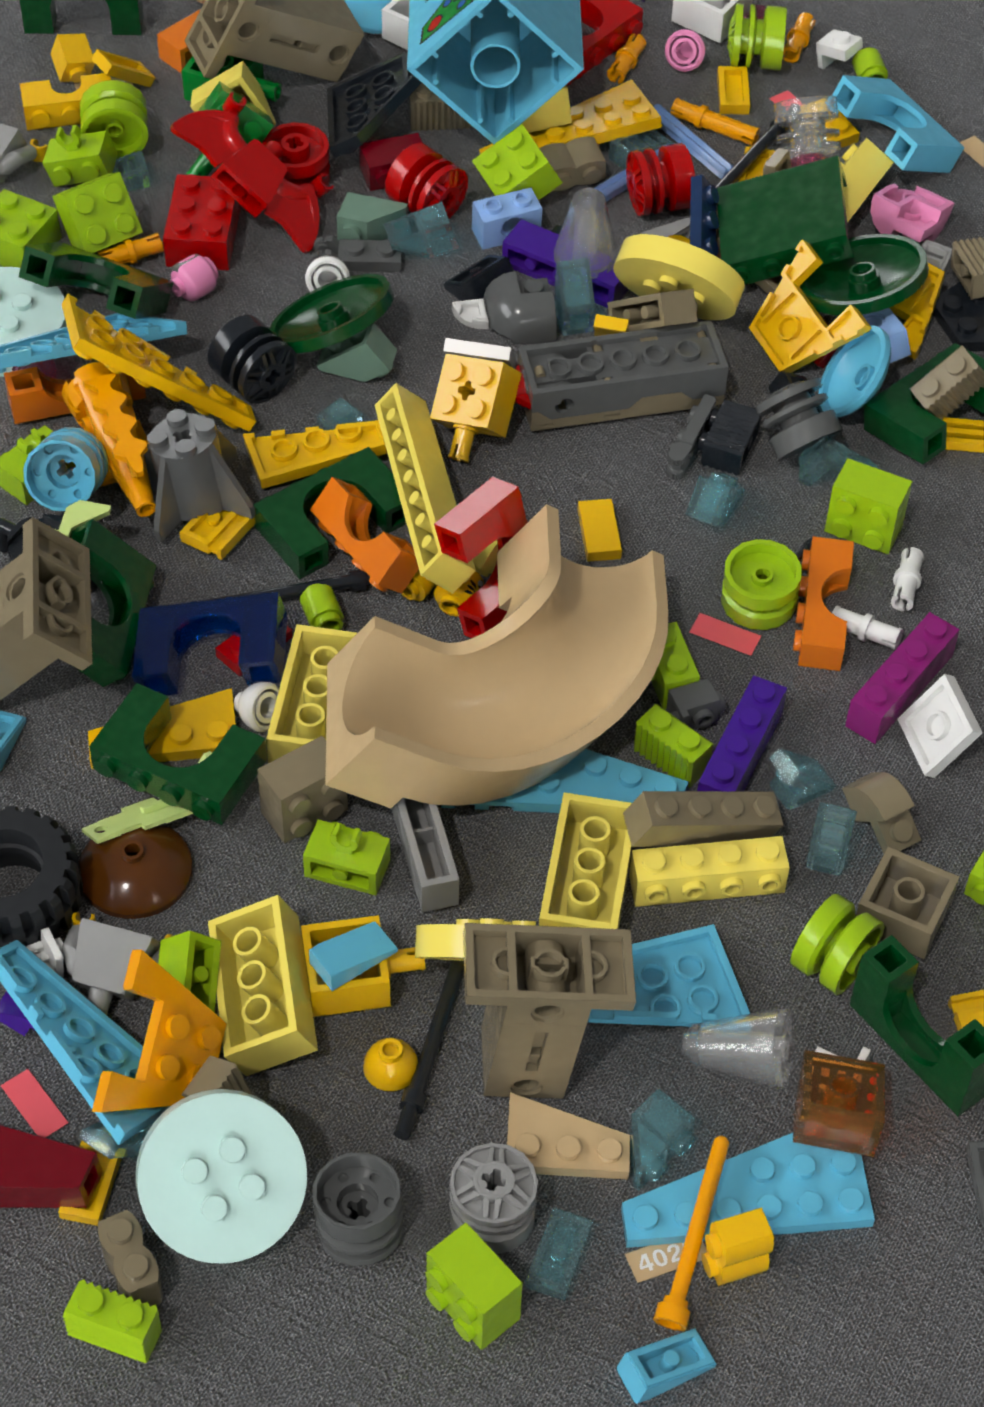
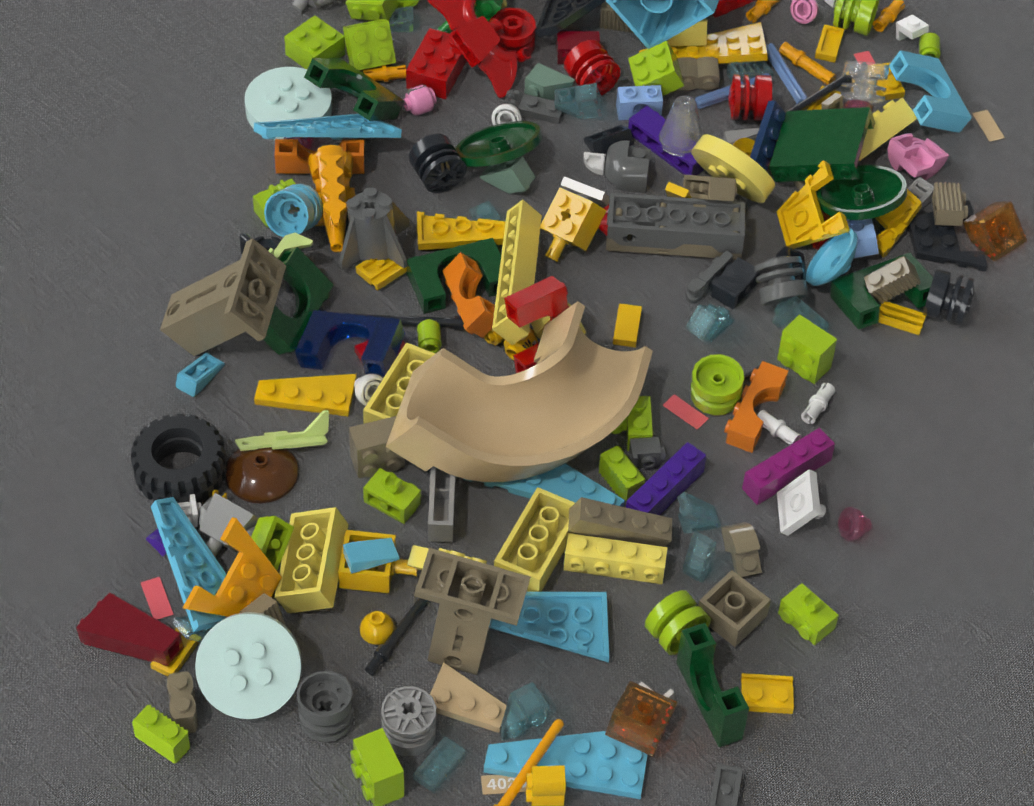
camera: 15 degrees right, 0 degrees up
(127, 353) = (366, 154): yellow wing -> none
(205, 788) = (317, 432): dark green arch -> none
(574, 297) = (663, 165): clear light blue slope -> none
(745, 1046) = (598, 671): clear cone -> none

